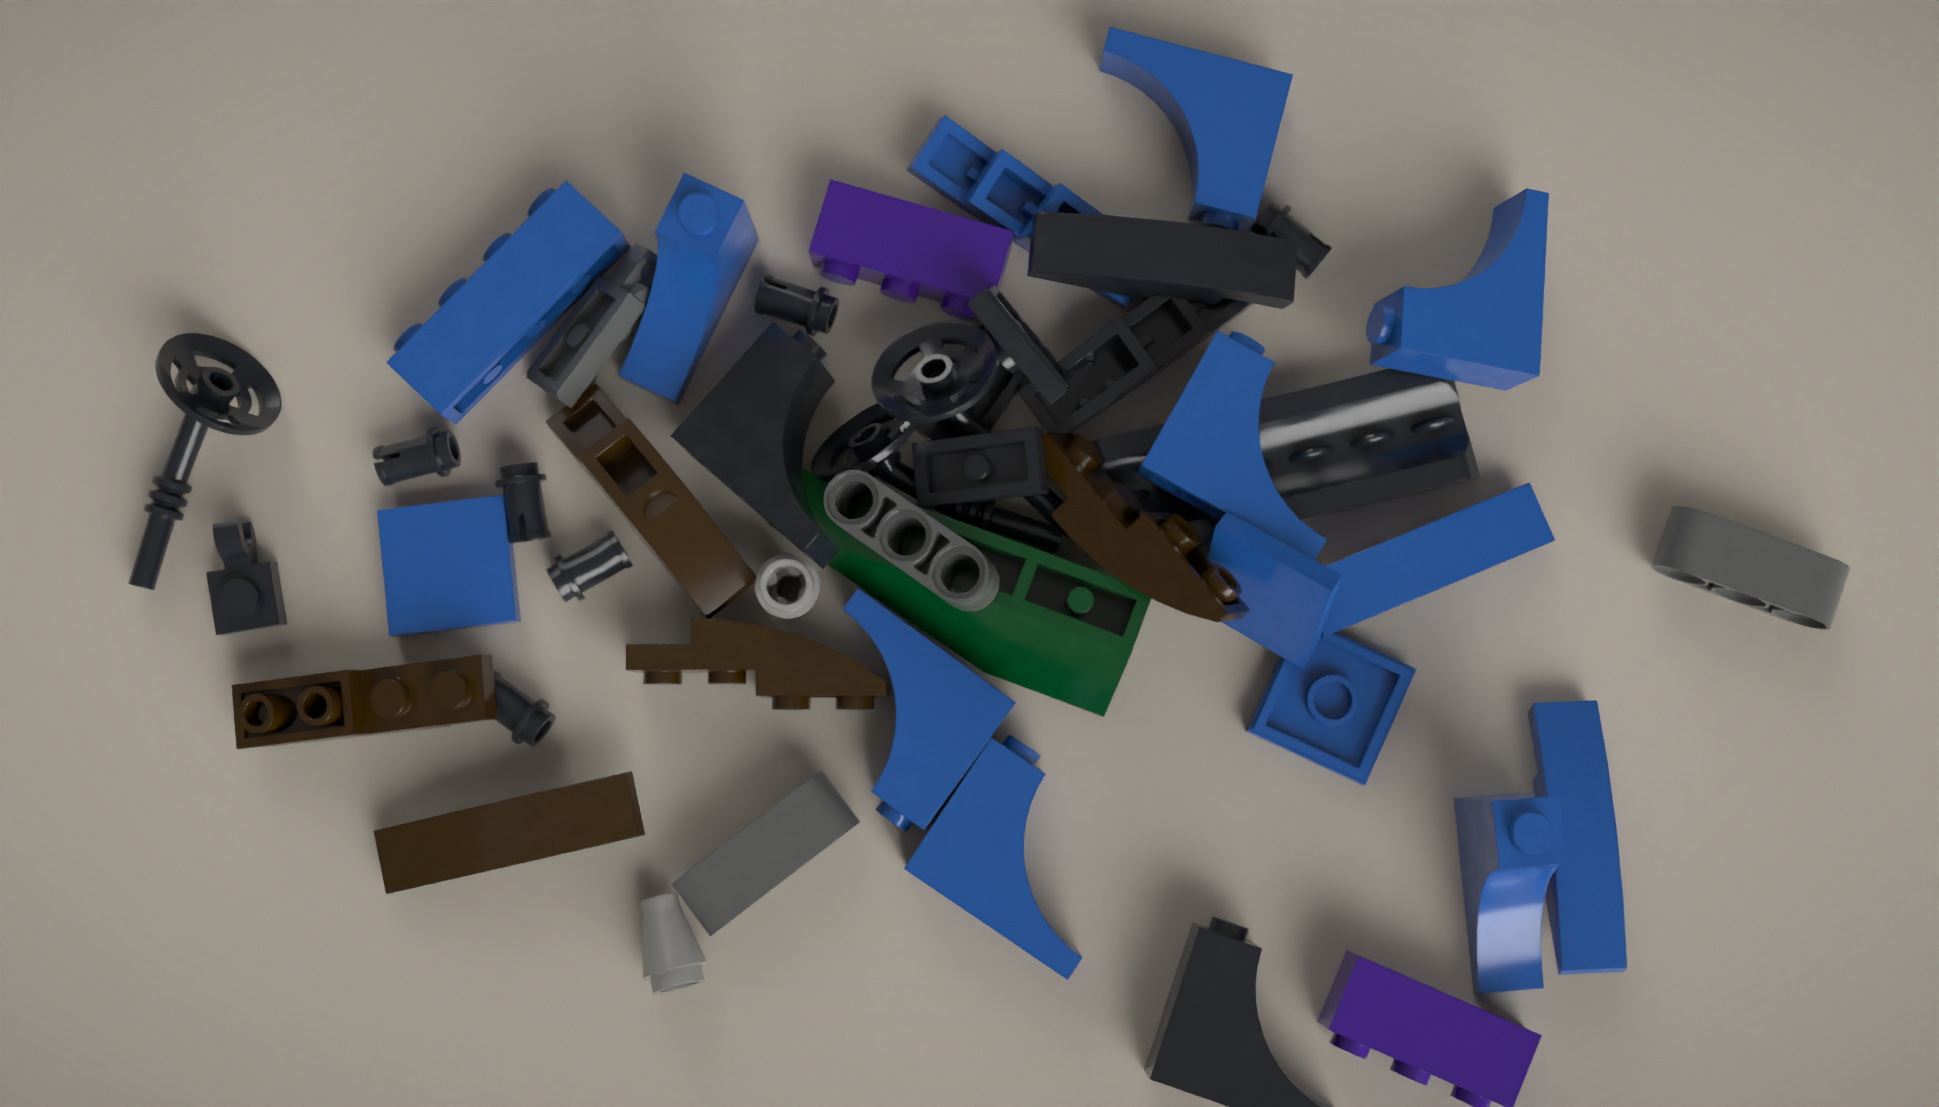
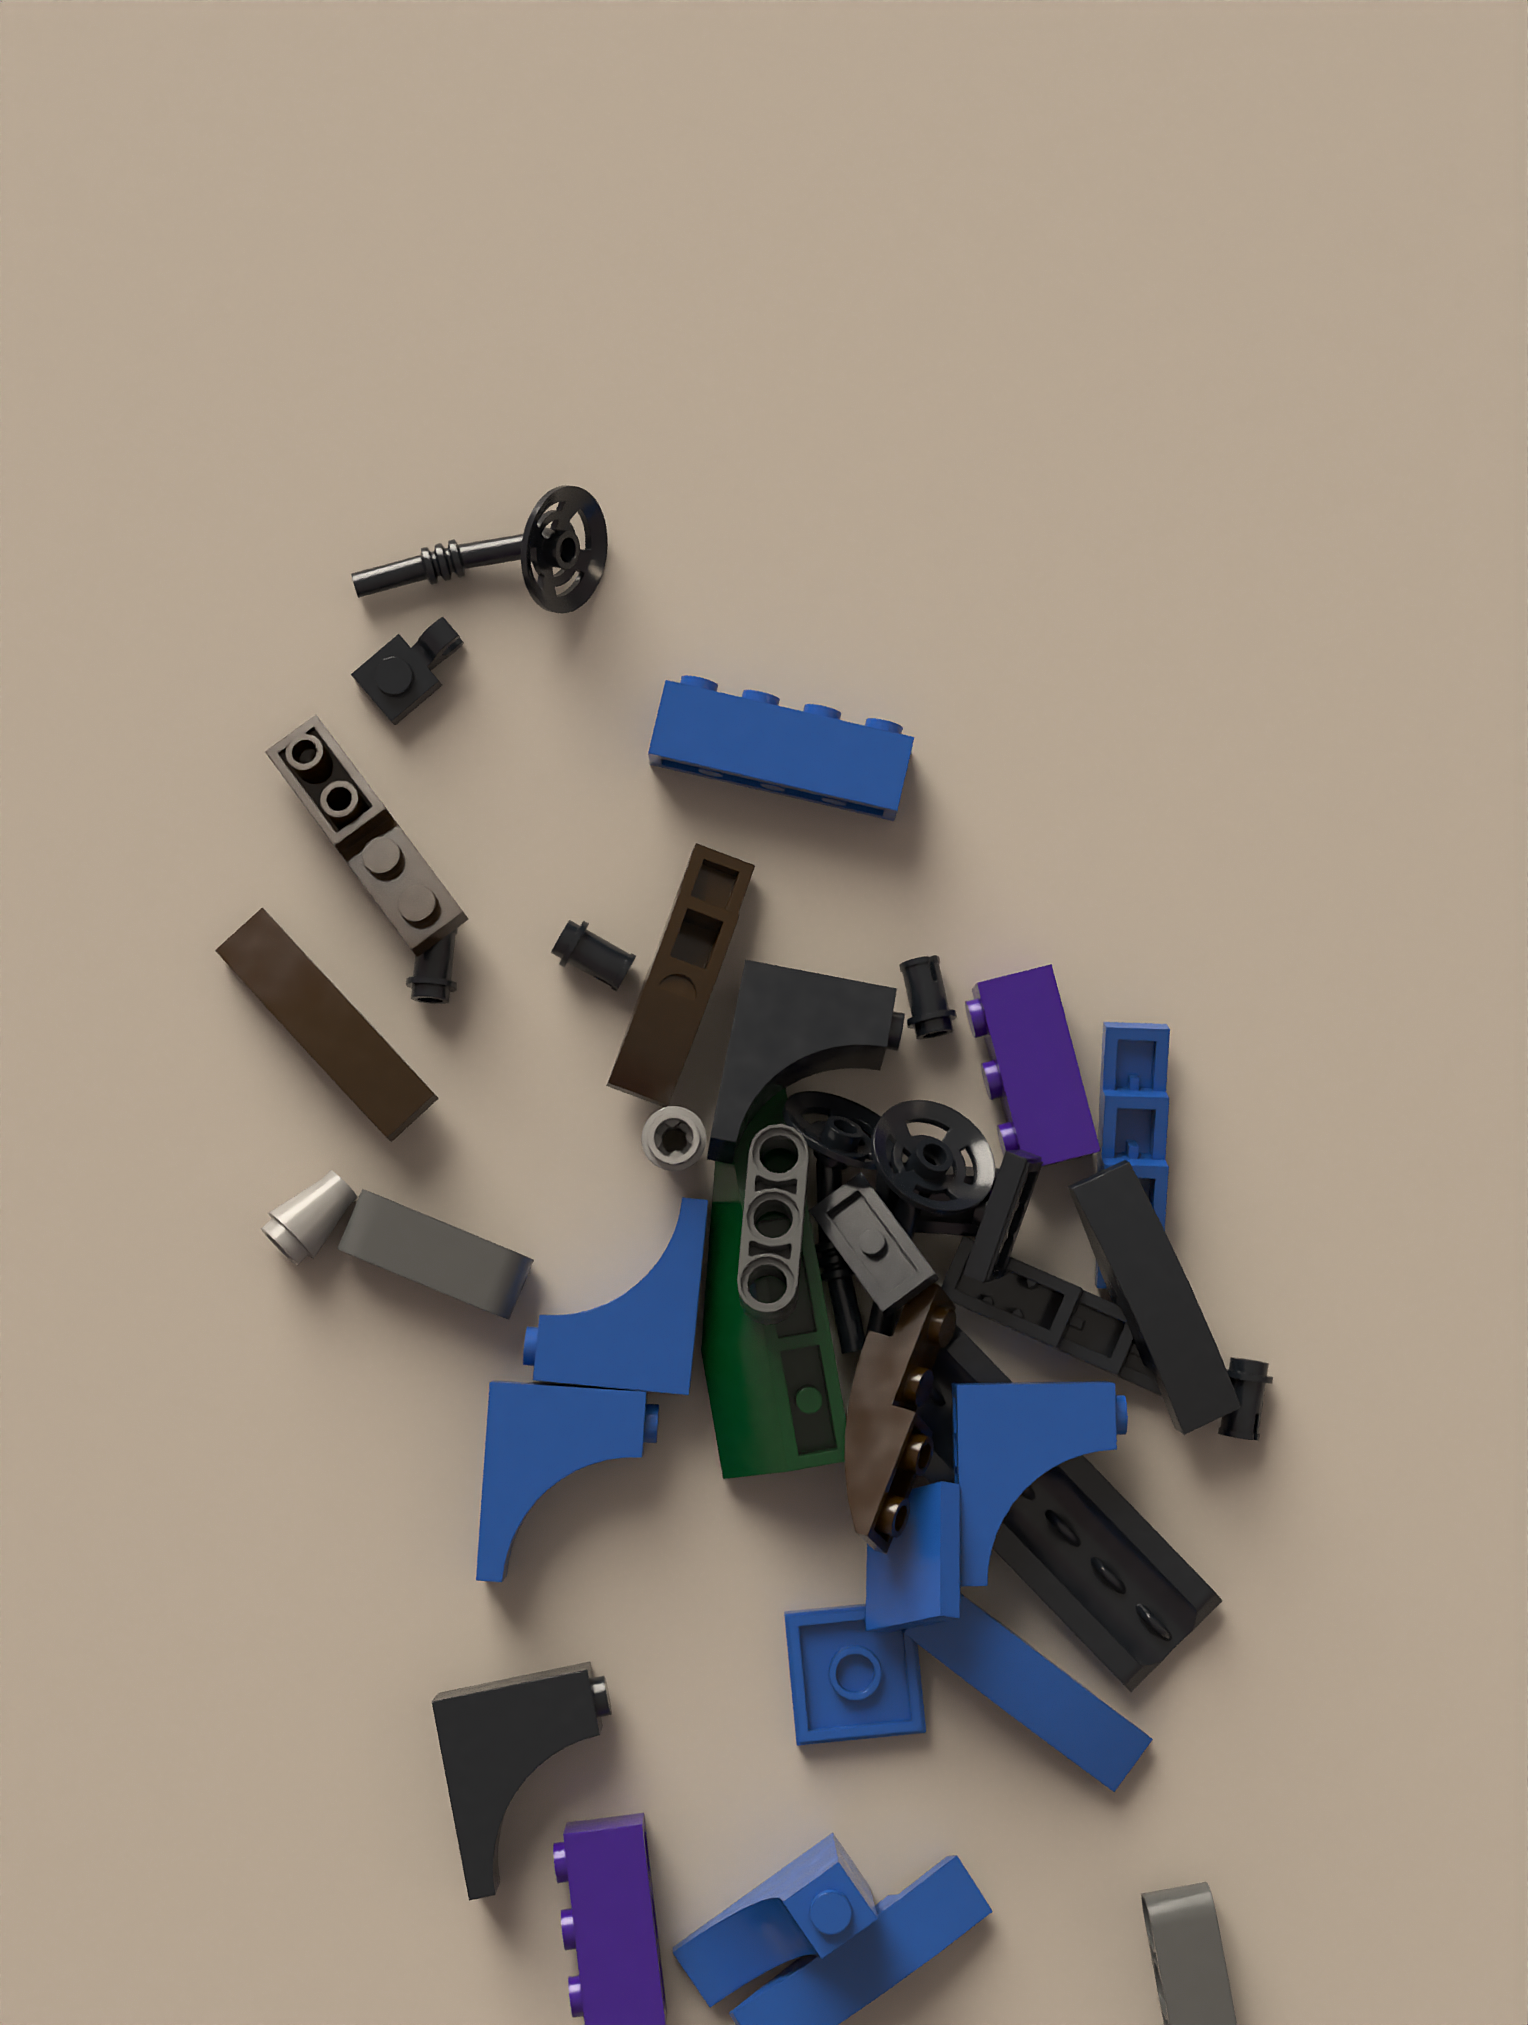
camera: 55 degrees right, 0 degrees up
(418, 457) = (601, 751): black pin -> none
(448, 566) = (524, 833): blue tile -> none
(524, 502) = (616, 866): black pin -> none
(595, 328) = (805, 837): dark grey hinge -> none
(700, 259) = (904, 895): blue arch -> none
(785, 665) = (607, 1176): dark brown slope -> none
(1222, 113) = (1319, 1274): blue arch -> none
(1487, 323) = (1271, 1617): blue arch -> none

